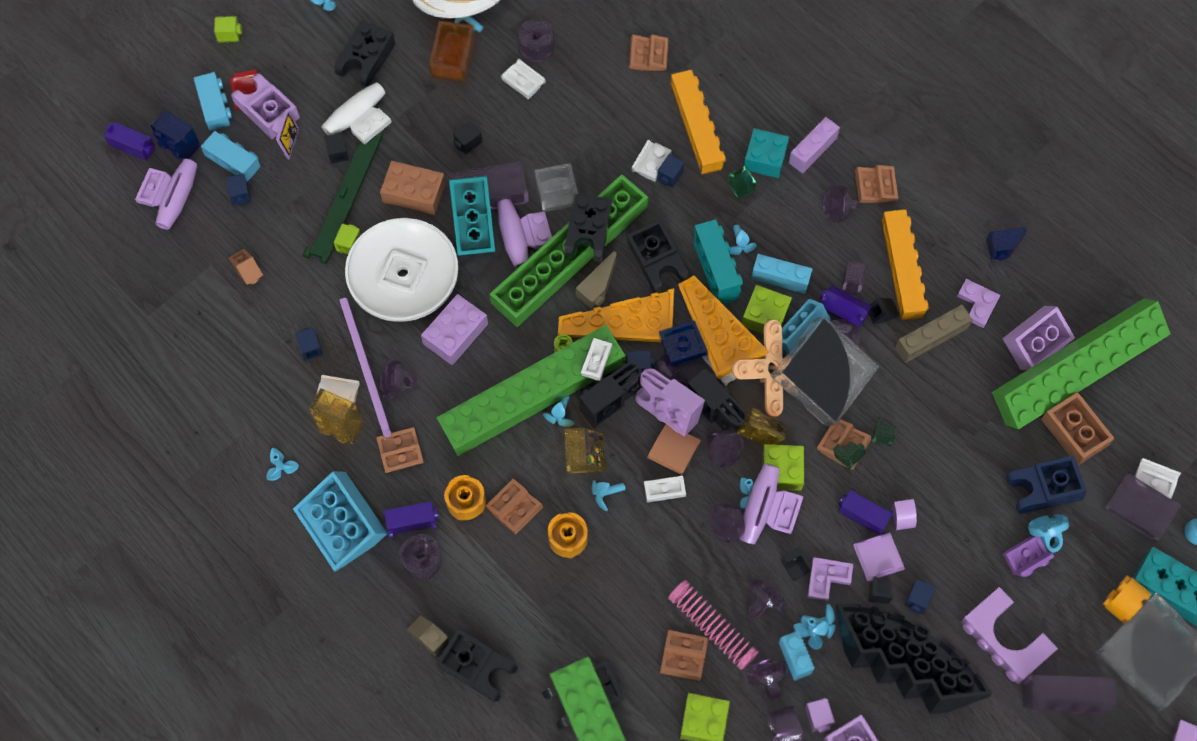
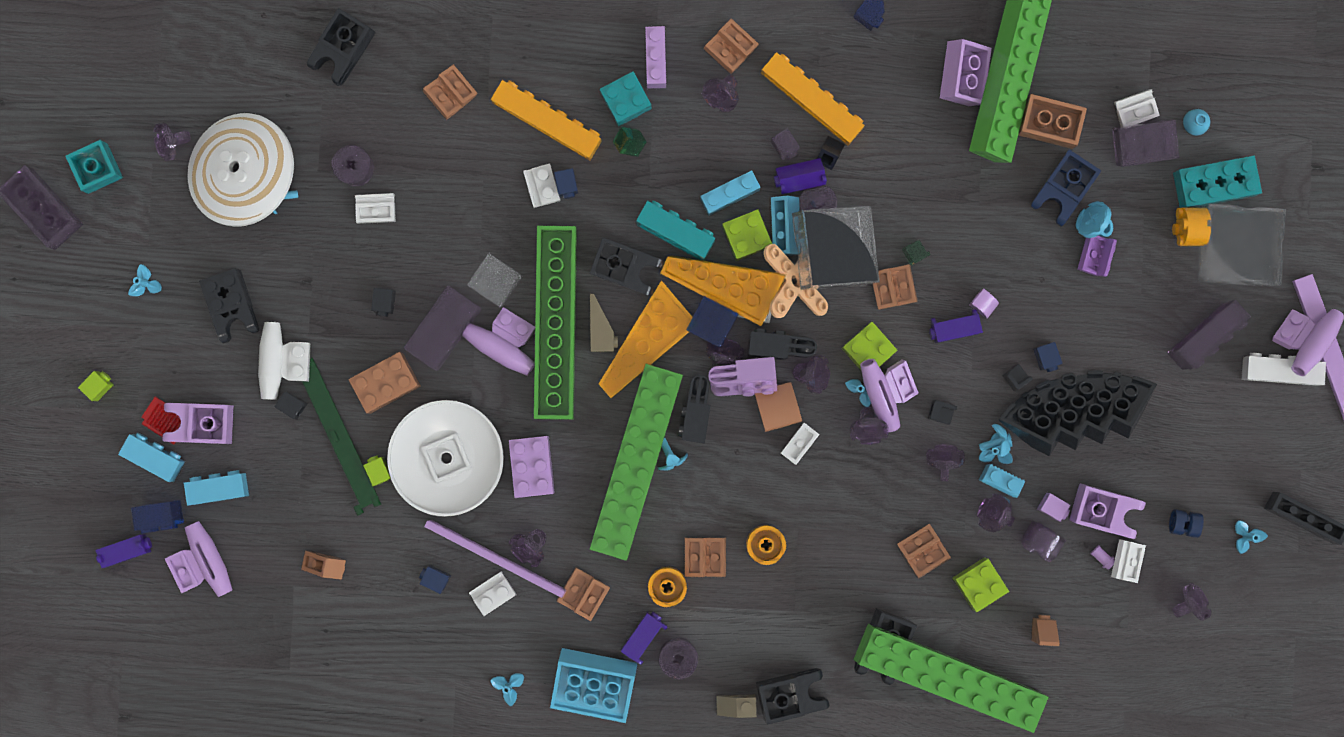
camera: 45 degrees left, 20 degrees up
(238, 189) = (252, 510): dark blue brick -> none
(287, 132) = (241, 433): piece -> none
(336, 416) = (518, 619): clear yellow brick -> none
(452, 51) = (297, 238): clear orange brick -> none
(462, 224) = (457, 357): teal brick -> none
(563, 338) = (623, 406): lime wheel -> none
(584, 450) = (716, 469): clear yellow slope -> none
(588, 224) = (560, 302): black brick -> none
(596, 359) = (668, 400): white plate -> none
(602, 489) = (759, 488): medium azure plant -> none
(642, 359) = (692, 364): dark blue brick -> none
(674, 598) = (970, 515): bright pink piece -> none
(742, 240) = (676, 193): medium azure plant -> none
(762, 428) = (830, 332): clear yellow slope -> none
(824, 573) = (967, 399): lavender plate -> none
(849, 454) = (907, 293): clear green panel -> none
(878, 556) = (992, 351): lavender piece -> none
(933, 333) = (884, 138): dark tan brick -> none
(982, 299) = (894, 73): lavender plate -> none
(1015, 663) = (1105, 336): lavender arch -> none

